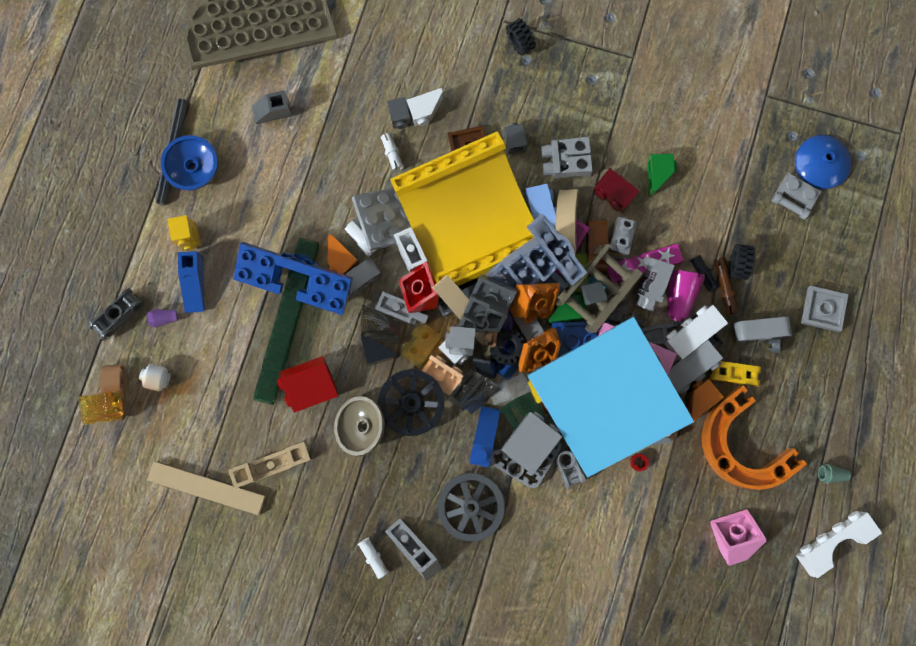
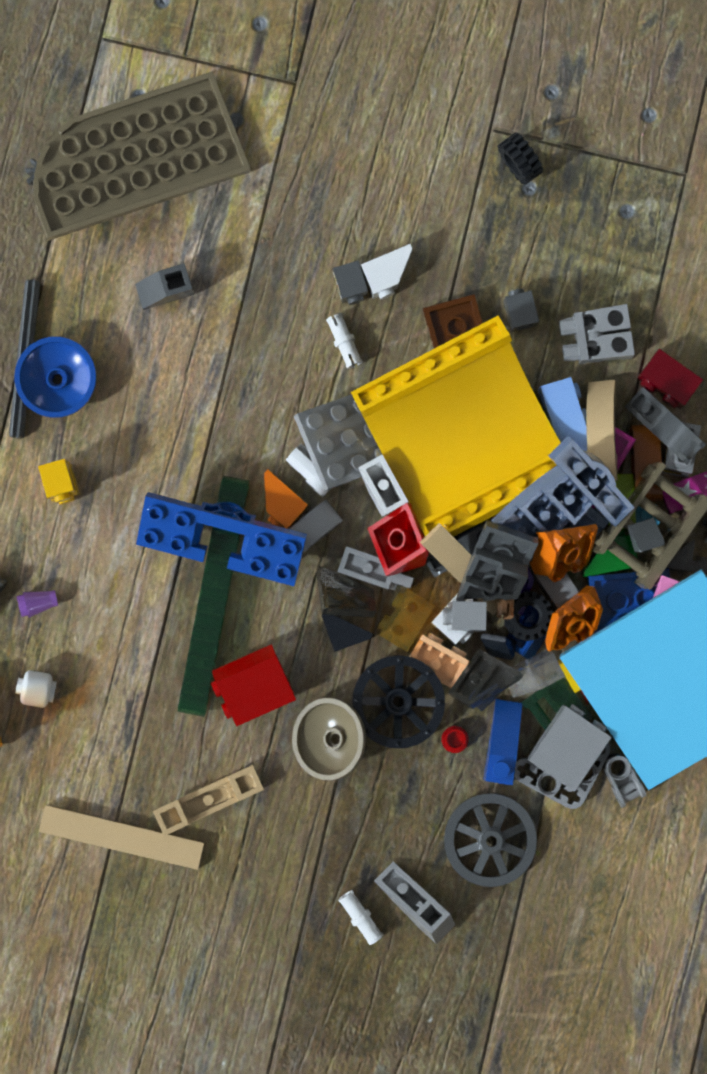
camera: 10 degrees left, 5 degrees up
(191, 280) = (75, 549): blue slope -> none
(450, 432) = (454, 739): none -> red plate
(611, 218) = (665, 425): none -> dark grey piece

